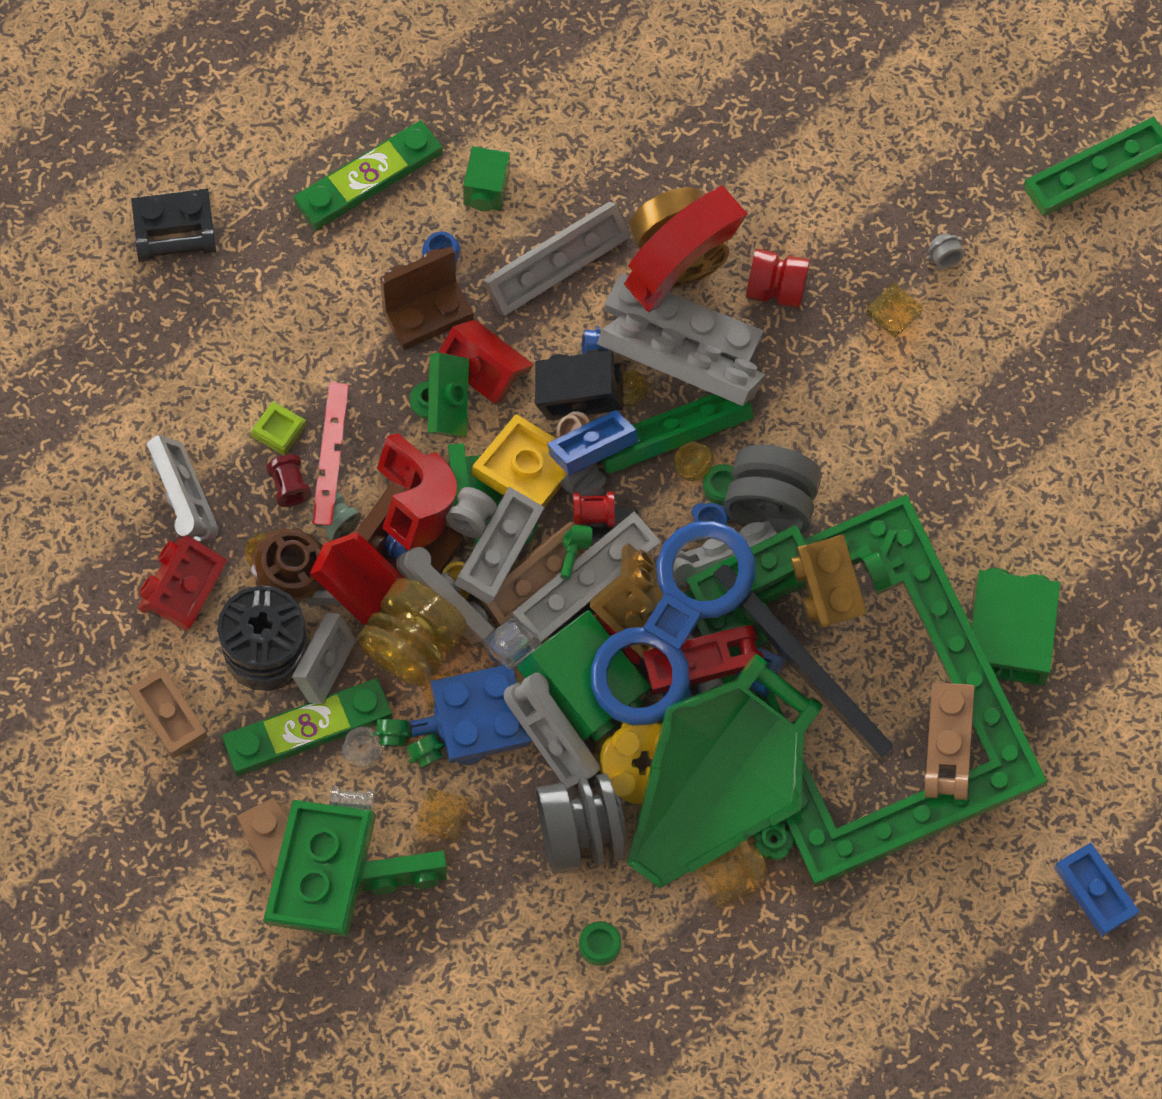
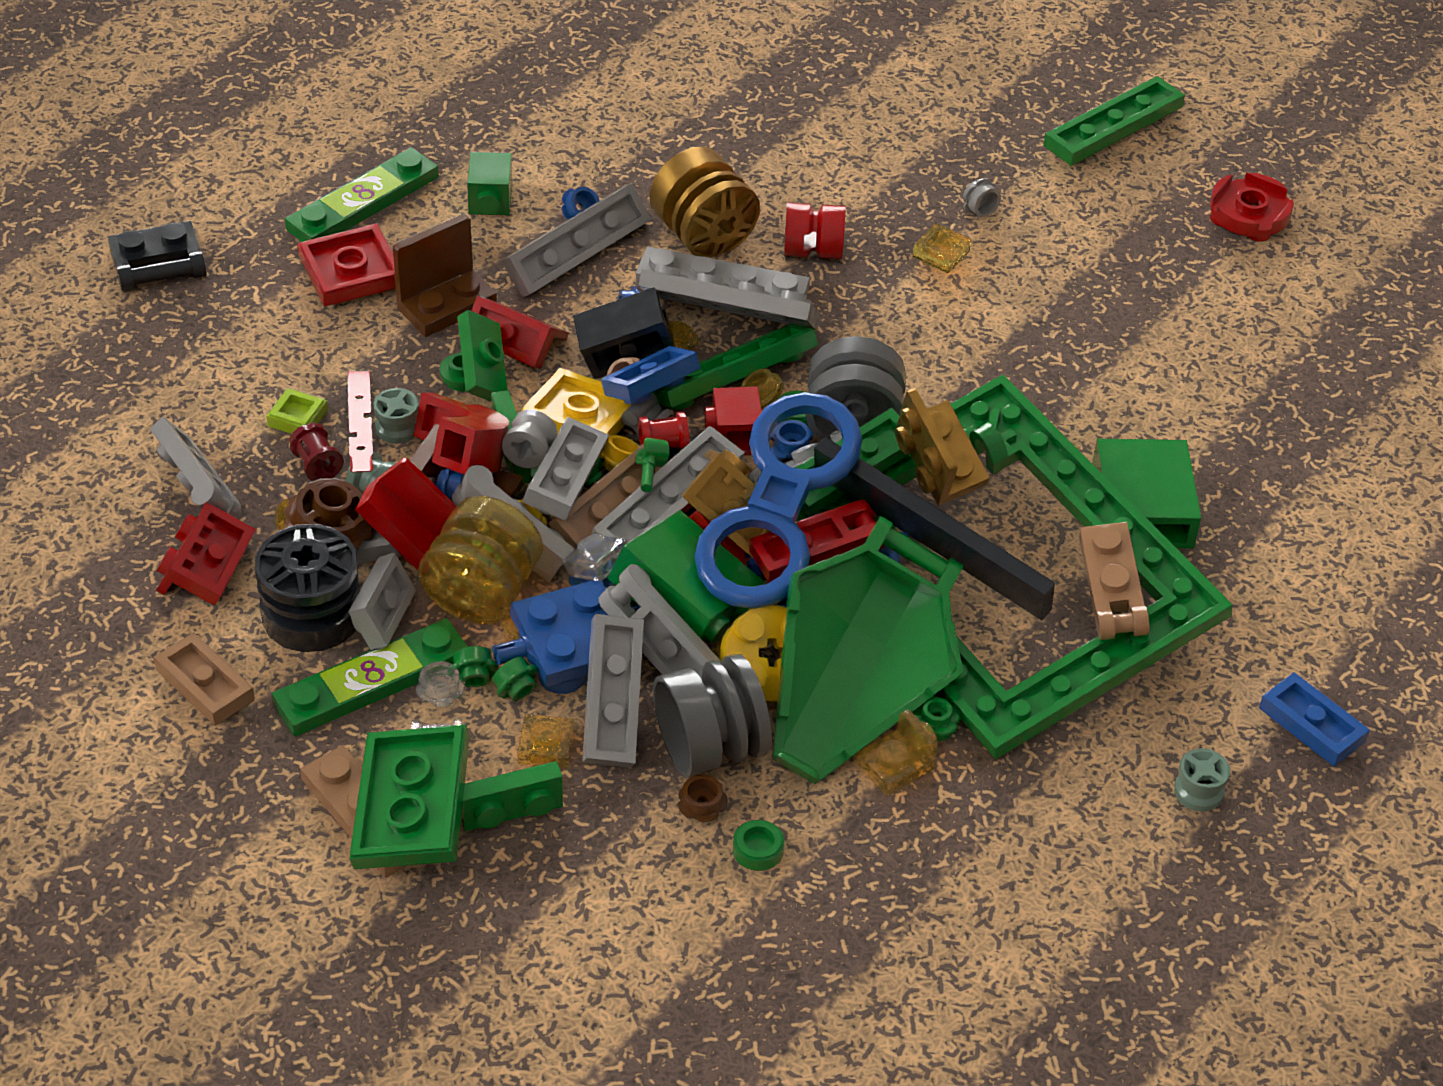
camera: 10 degrees left, 20 degrees down
(345, 260) = (349, 264): none -> red plate
(363, 438) = (395, 415): none -> sand green wheel
(502, 783) = (613, 691): none -> light grey plate
(554, 517) = (617, 450): none -> yellow plate
(562, 883) = (702, 788): none -> reddish brown plate
(569, 205) = (582, 195): none -> blue plate
(662, 495) = (734, 414): none -> red brick
(680, 243) = (704, 186): red arch -> none
(987, 930) = (1199, 767): none -> sand green wheel

